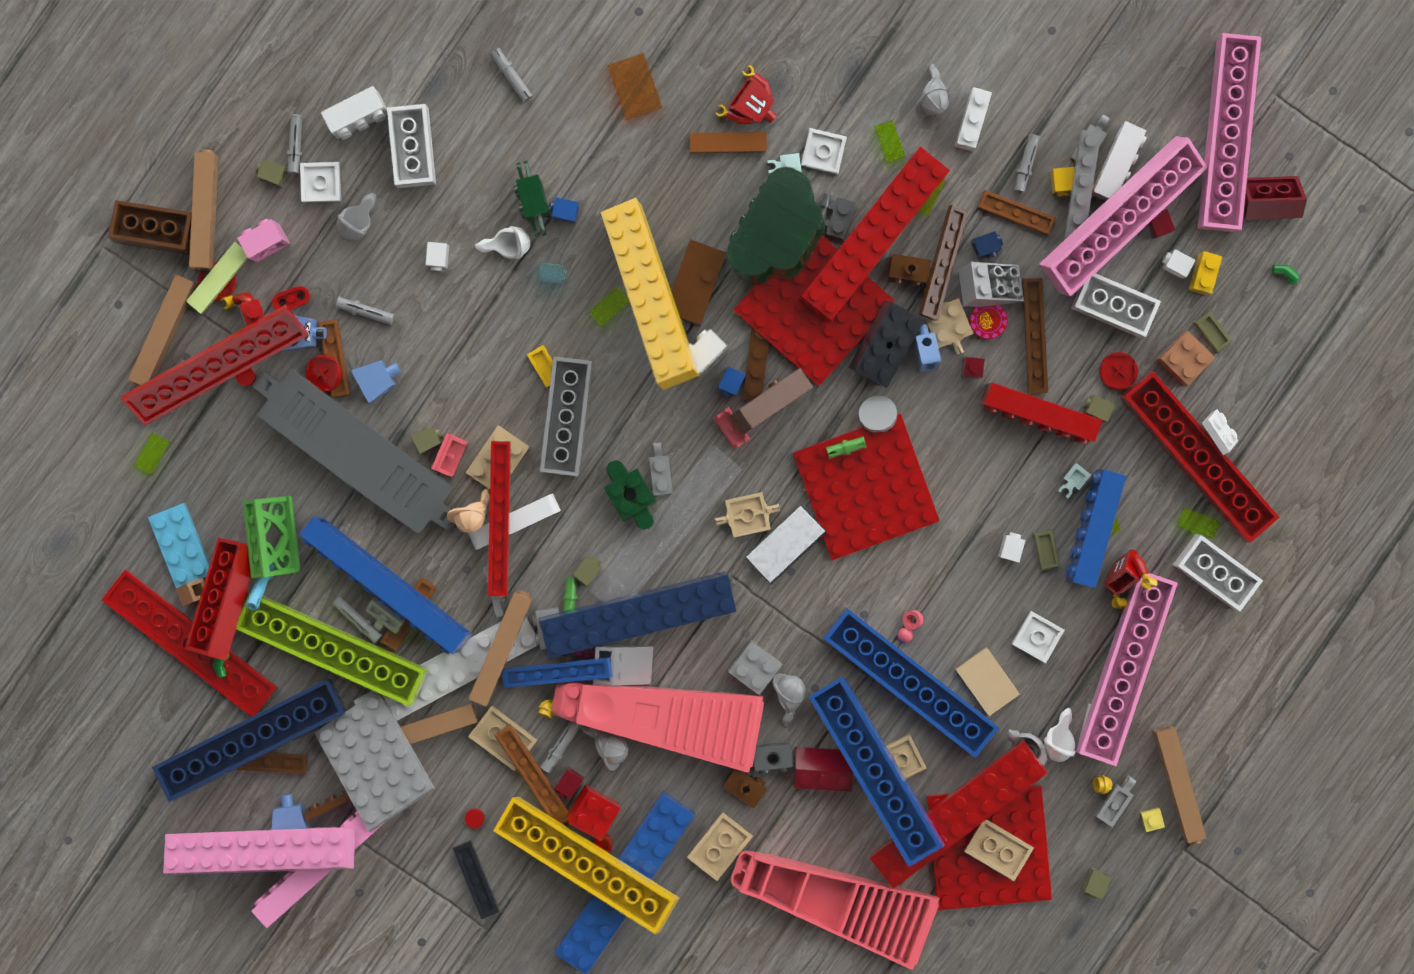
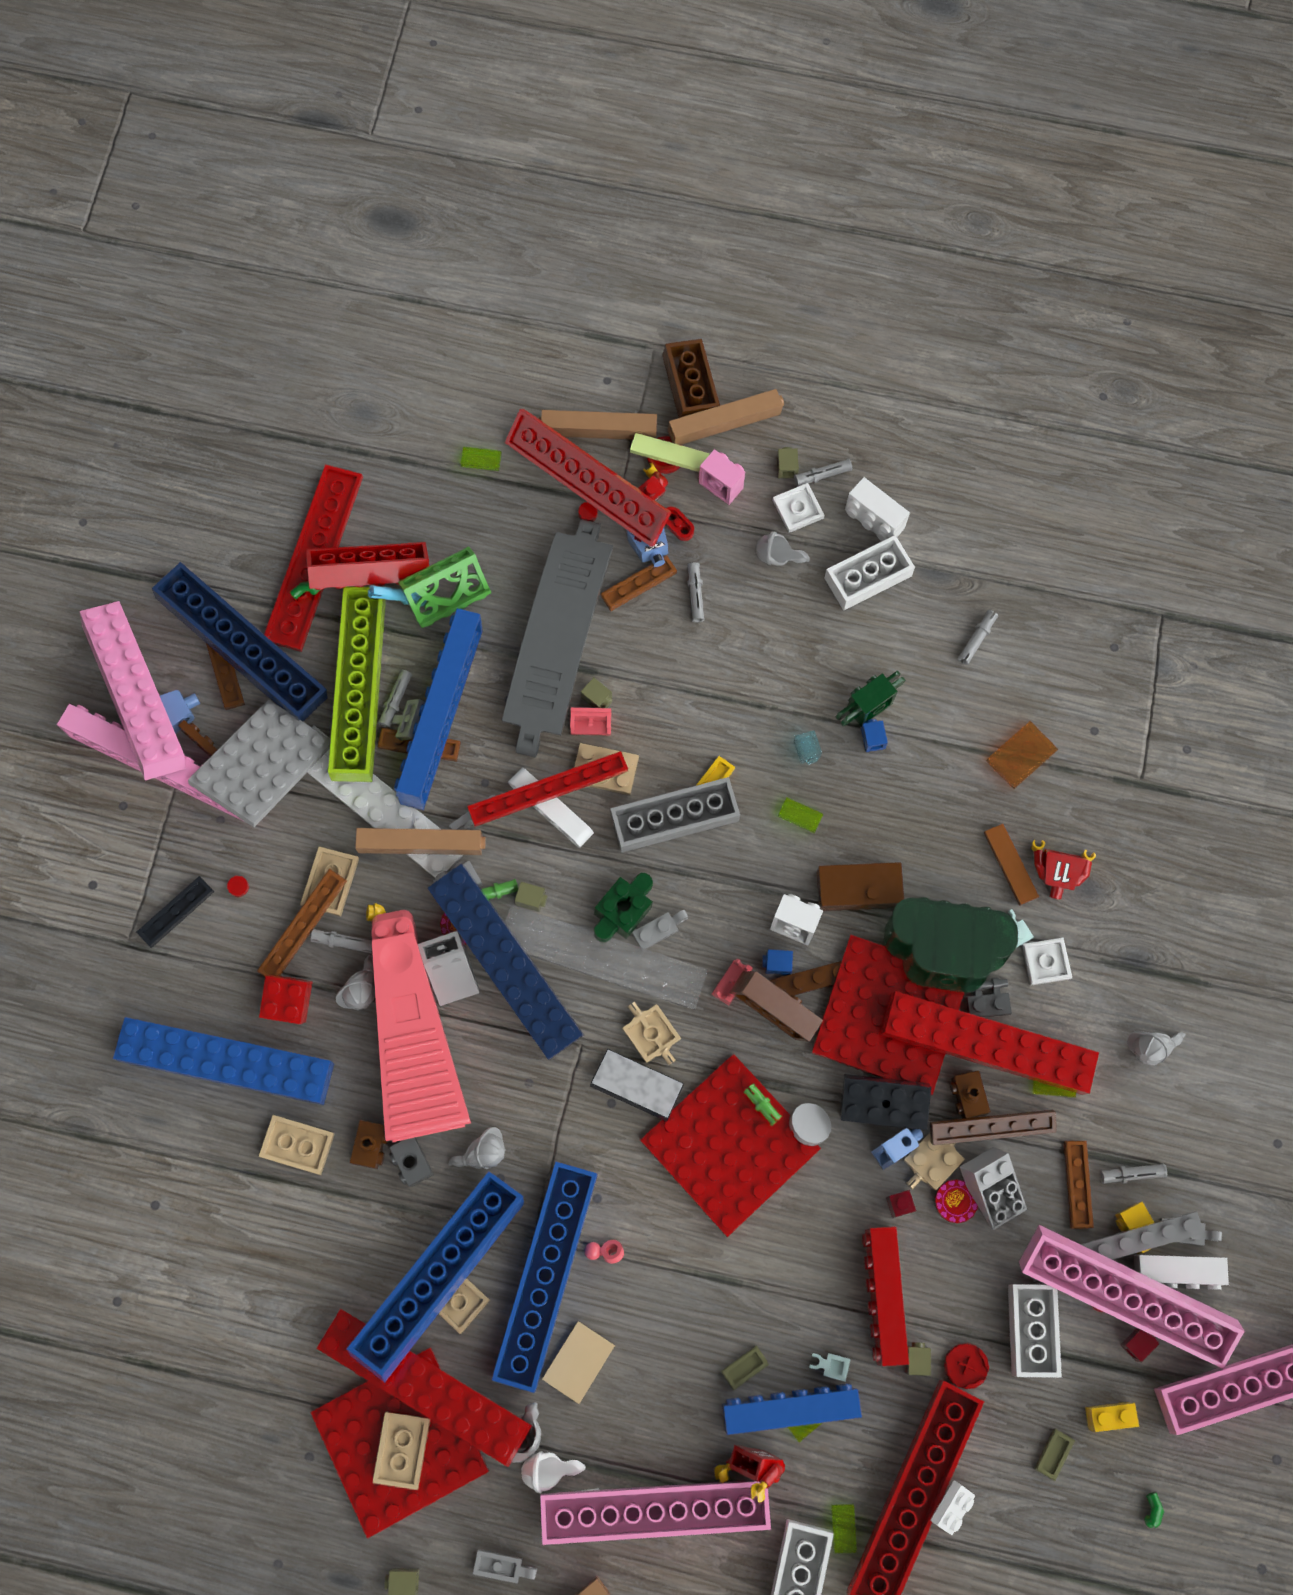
camera: 65 degrees right, 15 degrees down
(180, 545) = (404, 514): medium azure plate -> none
(190, 592) = (363, 536): medium nougat brick -> none
(324, 372) = (621, 577): red tile -> none
(376, 379) = (634, 626): medium blue torso -> none
(437, 256) = (776, 636): white brick -> none
(440, 723) = (322, 814): medium nougat brick -> none
(472, 516) = (539, 761): light nougat piece -> none
(508, 242) = (819, 695): white piece -> none
(557, 672) = (416, 905): blue plate -> none
(569, 783) = (307, 964): dark red brick -> none
(586, 864) = (228, 1012): yellow brick -> none
(606, 843) = (256, 1025): red tile -> none
(649, 294) = (829, 841): yellow brick -> none
(755, 667) = (498, 1104): light grey brick -> none
(822, 770) = (416, 1219): dark red slope -> none
(848, 905) = (280, 1323): coral brick -> none
(889, 141) = (1088, 1023): clear neon green tile -> none
(973, 119) = (1150, 1097): white brick -> none
(987, 245) = (1032, 1166): dark blue brick -> none
(1012, 547) = (732, 1327): white brick -> none
(1035, 335) = (962, 1258): reddish brown plate -> none
(1038, 636) = (648, 1397): white plate -> none
(1102, 784) = (515, 1542): yellow plate -> none
(1177, 263) = (1108, 1381): white brick -> none
(1185, 358) = (1013, 1434): nougat brick -> none
(1274, 198) = (1225, 1459): dark red slope -> none

